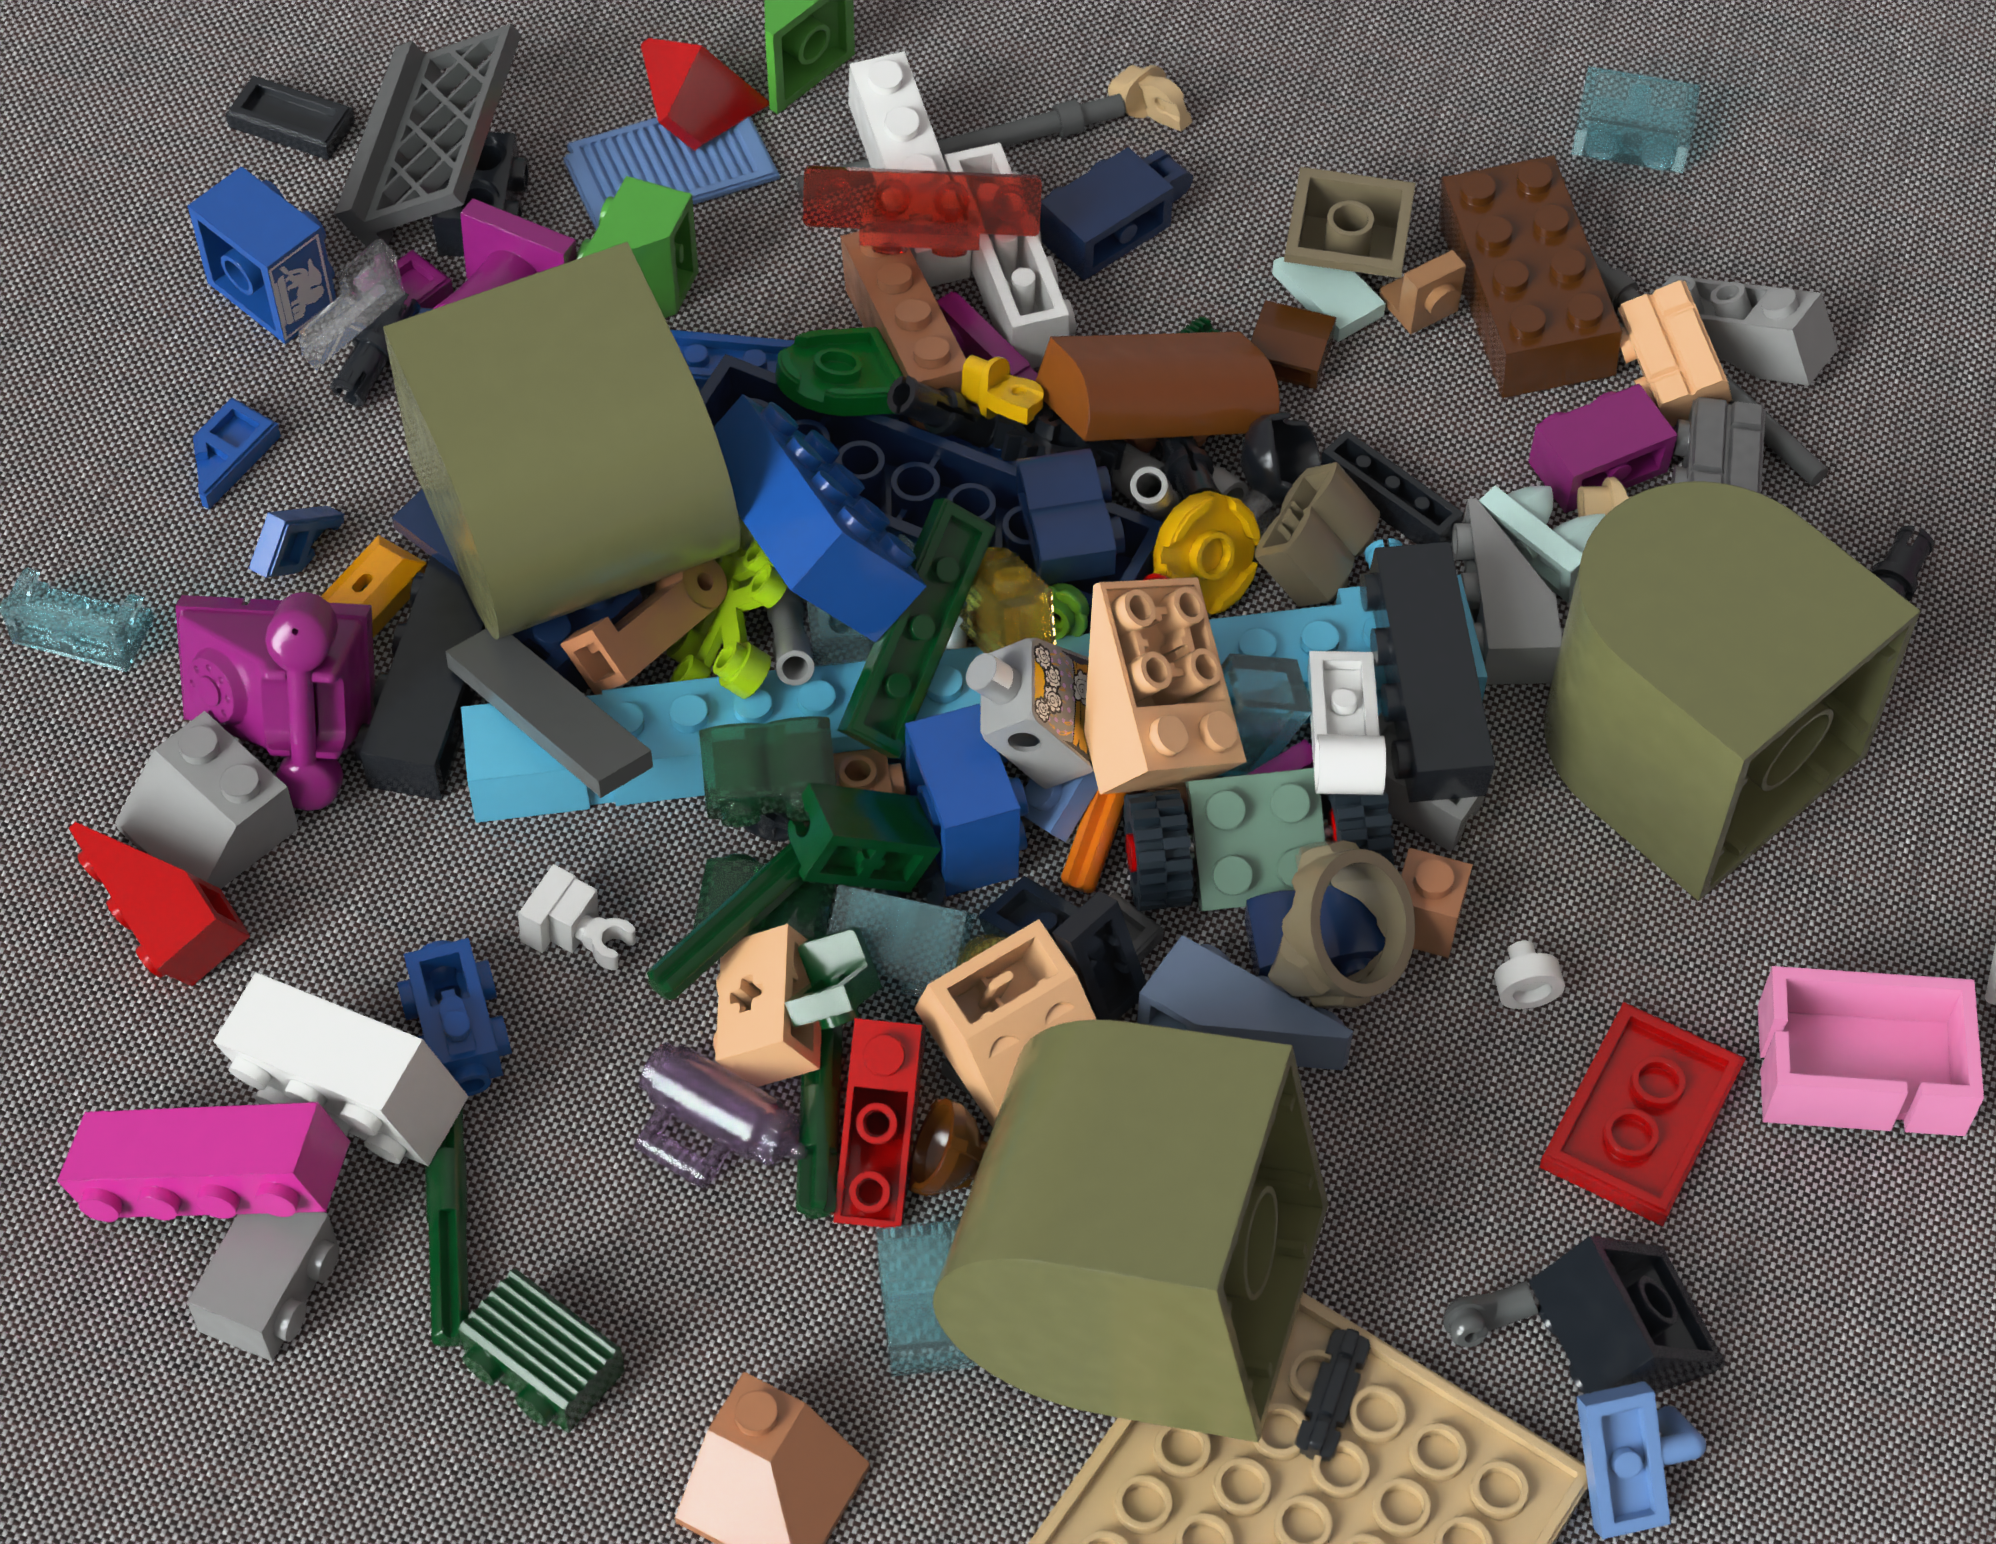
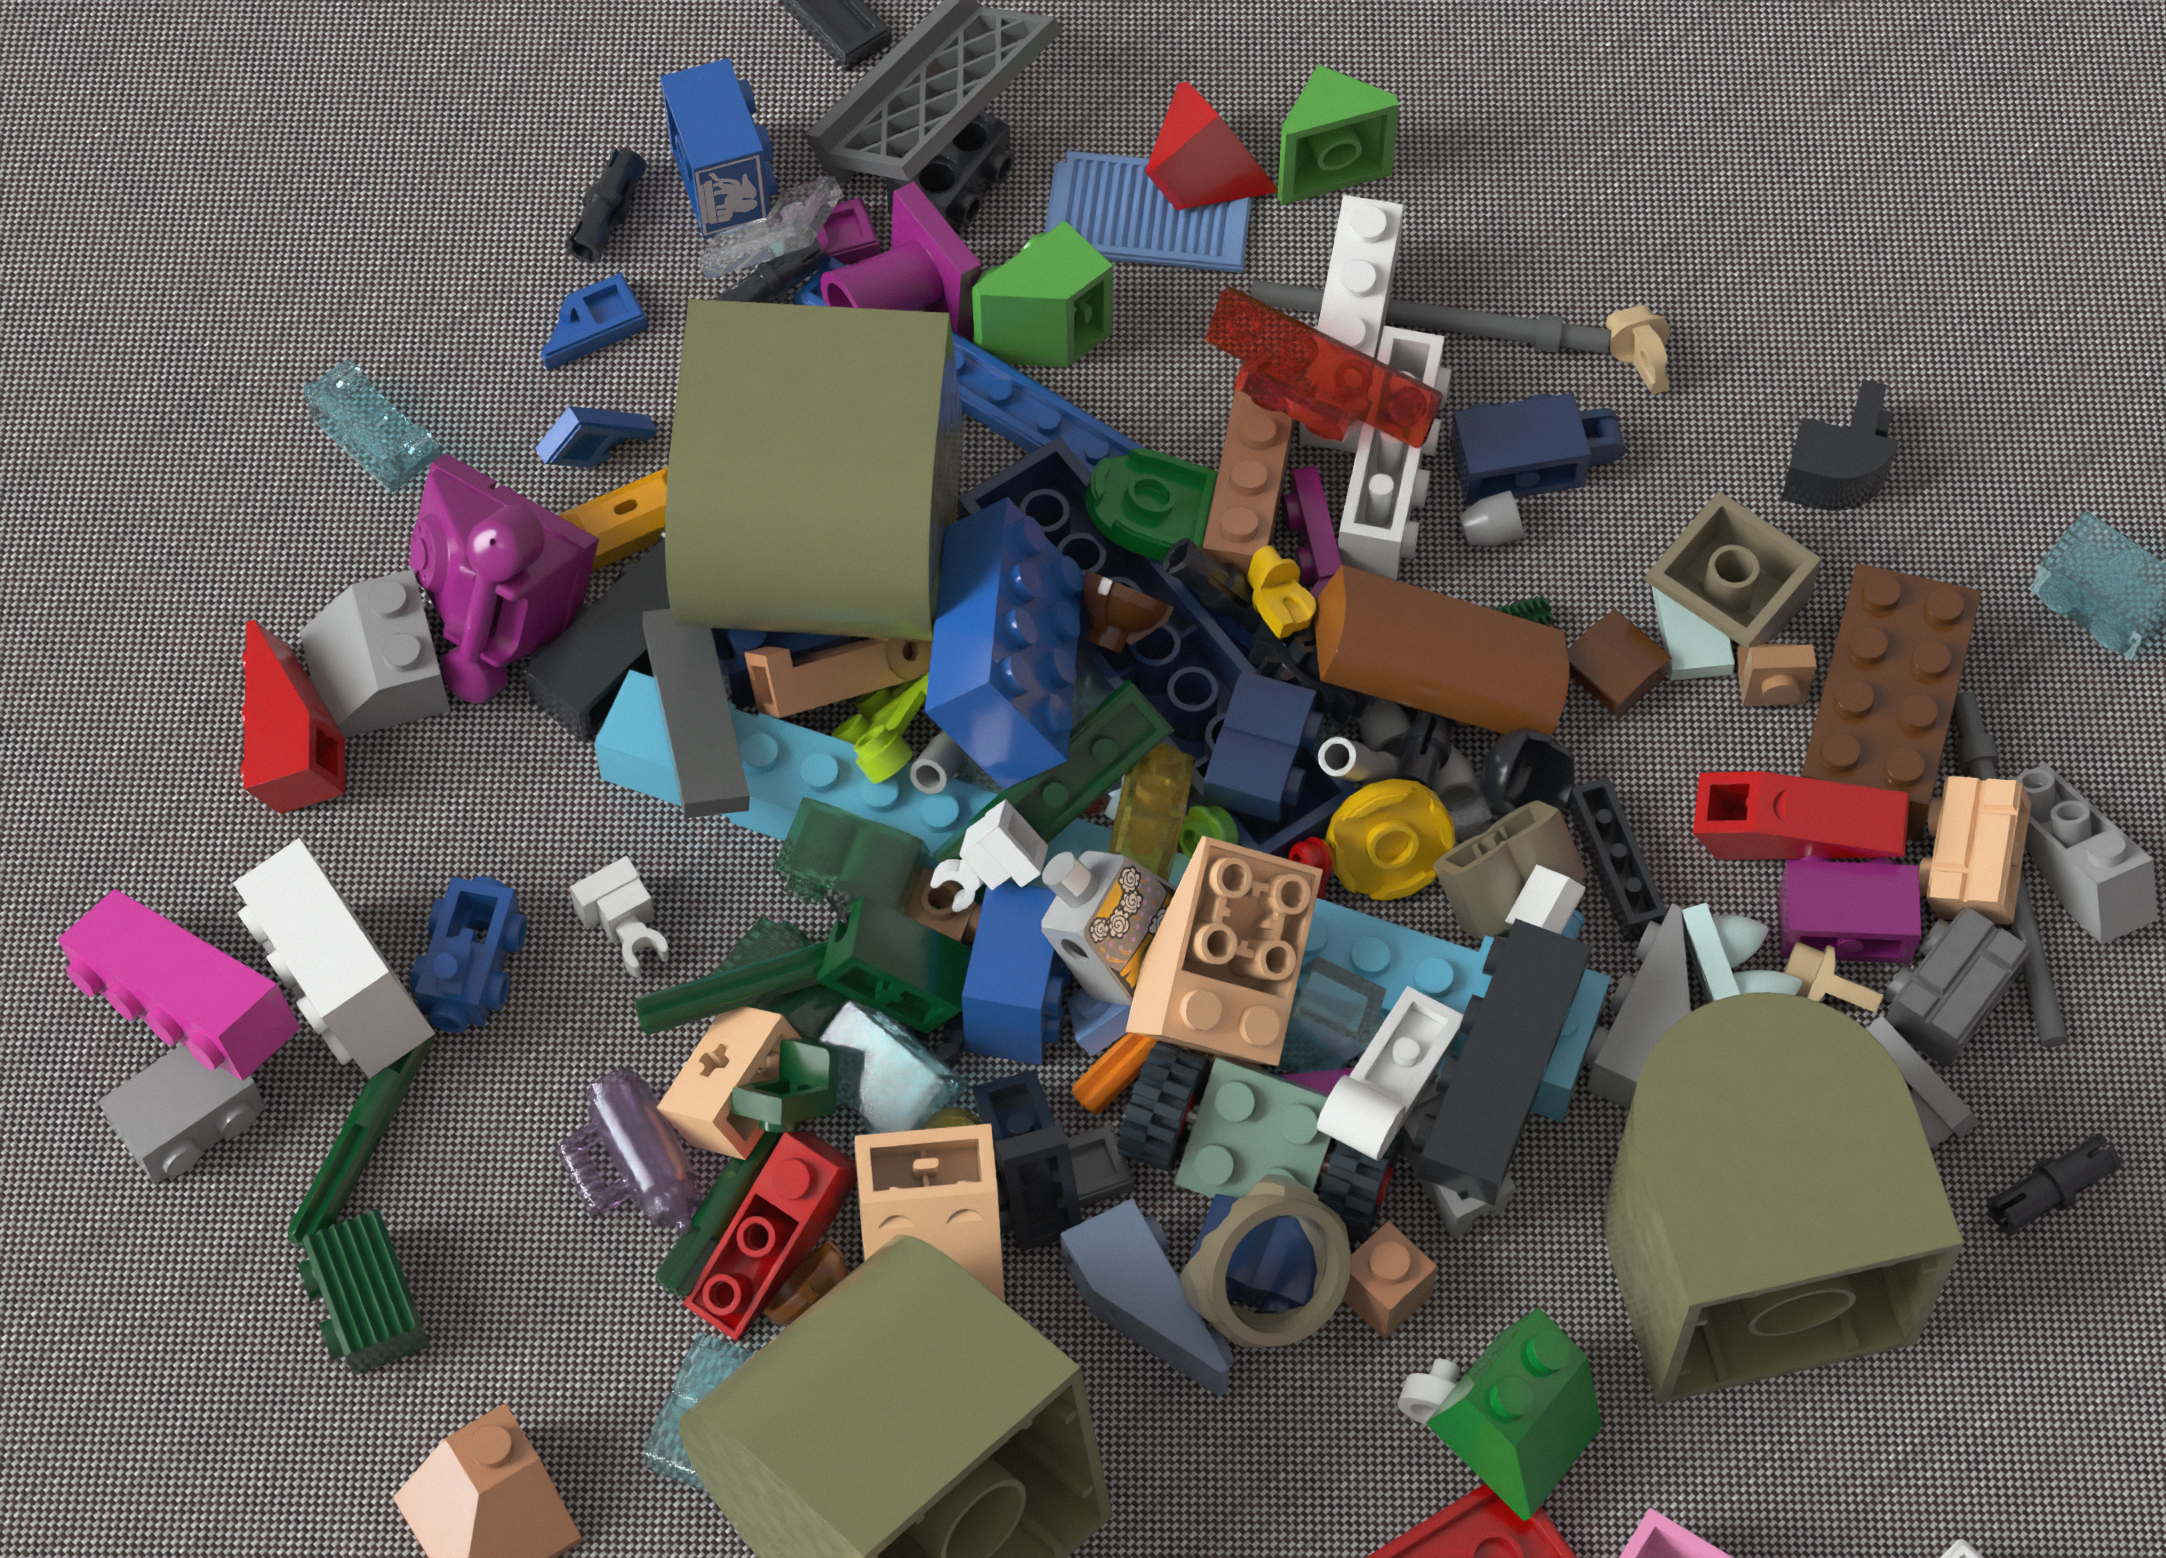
camera: 30 degrees right, 5 degrees up
(181, 349) = (606, 205): none -> black pin
(879, 459) = (1120, 612): none -> reddish brown piece
(905, 694) = (991, 853): none -> white piece
(1119, 278) = (1492, 521): none -> light grey hose
(1364, 533) = (1547, 900): none -> white tile
(1367, 116) = (1840, 465): none -> black brick
(1523, 387) = (1797, 817): none -> red slope
(1609, 945) = (1522, 1412): none -> green slope

